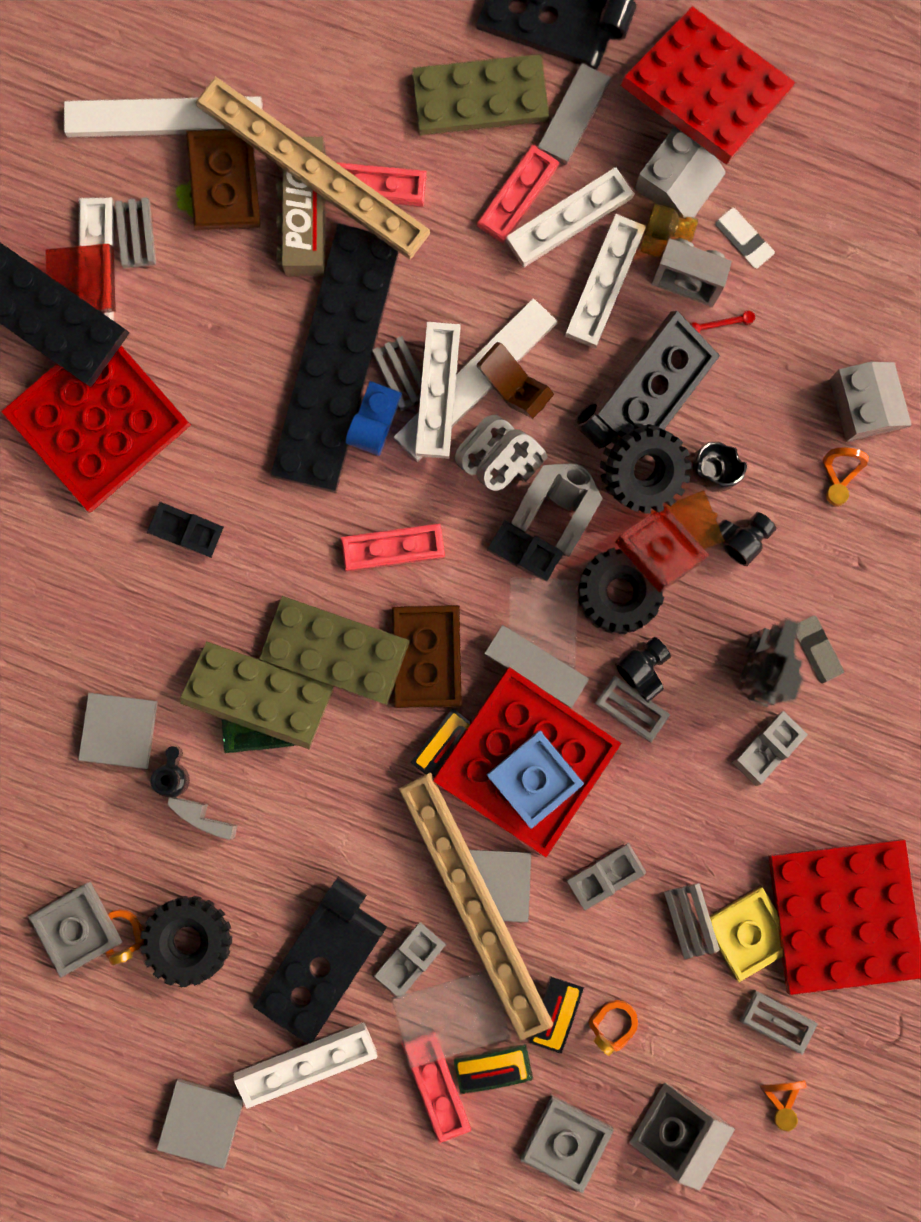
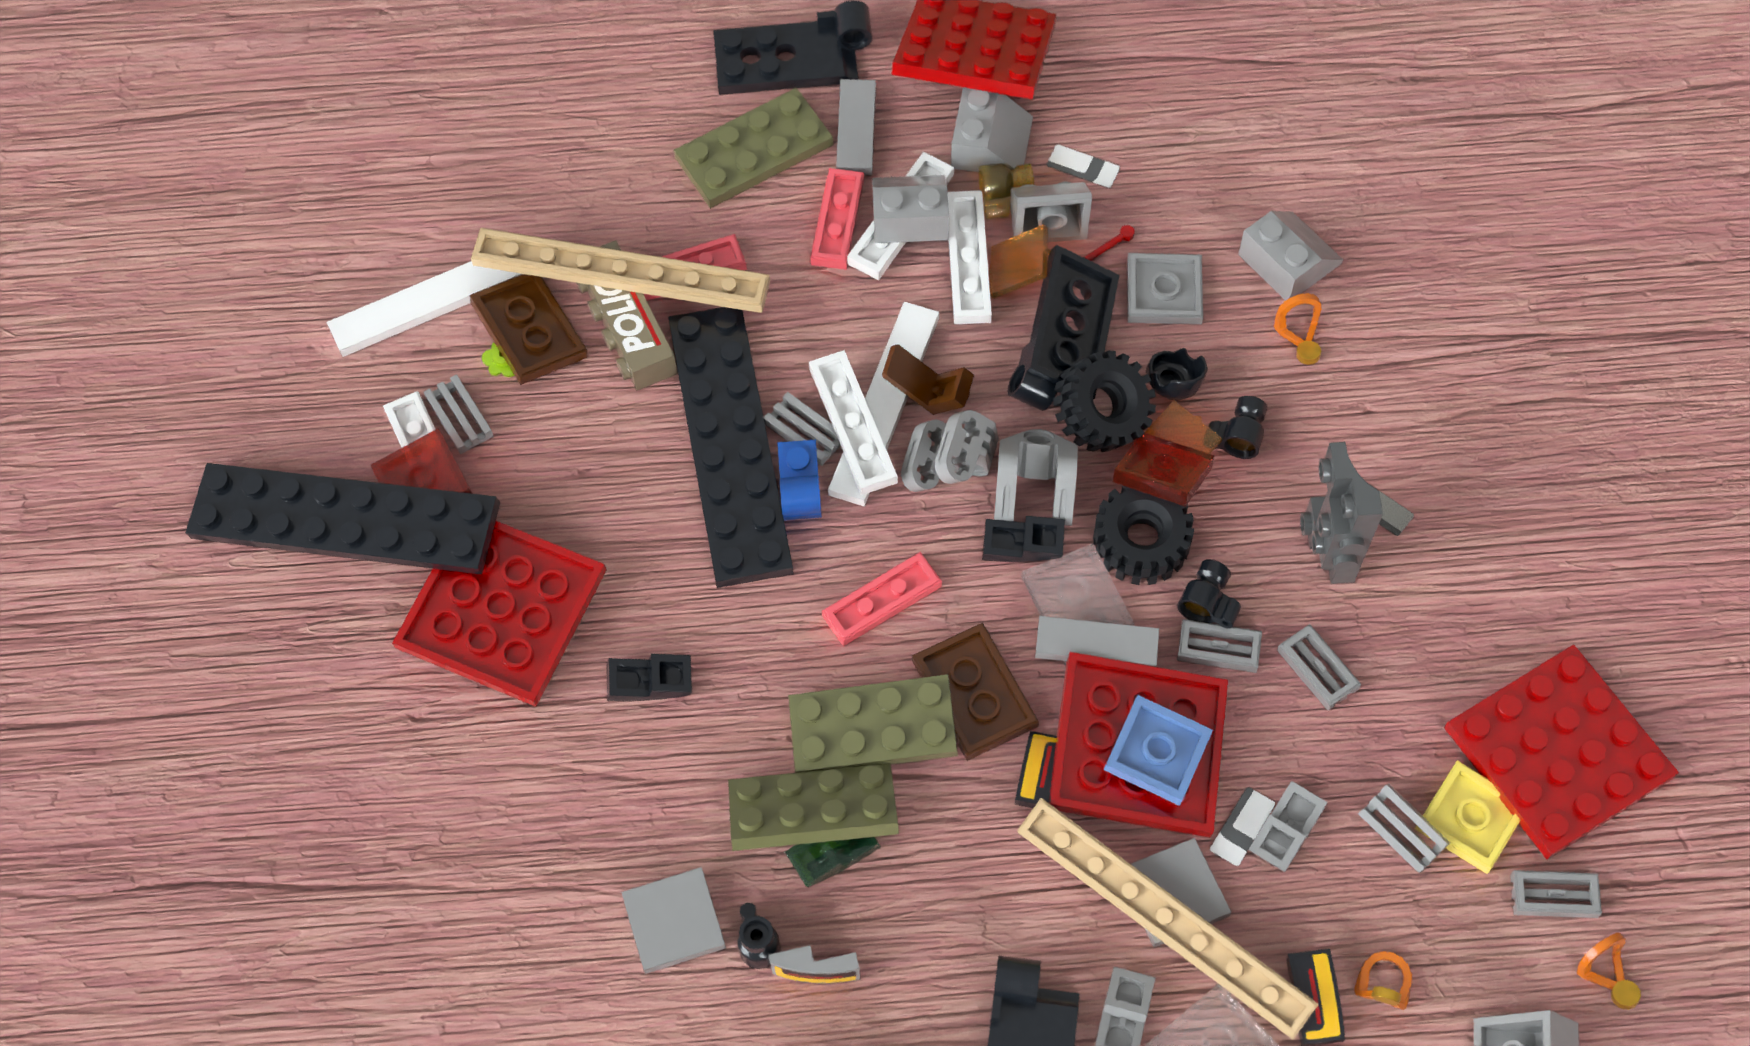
camera: 20 degrees left, 20 degrees down
(574, 857) = (1242, 826): none -> white sticker
(576, 216) = (910, 209): none -> light grey slope
(643, 307) = (1019, 261): none -> clear orange piece
(686, 766) = (1307, 676): none -> light grey tile
(751, 383) = (1164, 288): none -> light grey tile
(769, 748) = (1383, 620): light grey slope -> none

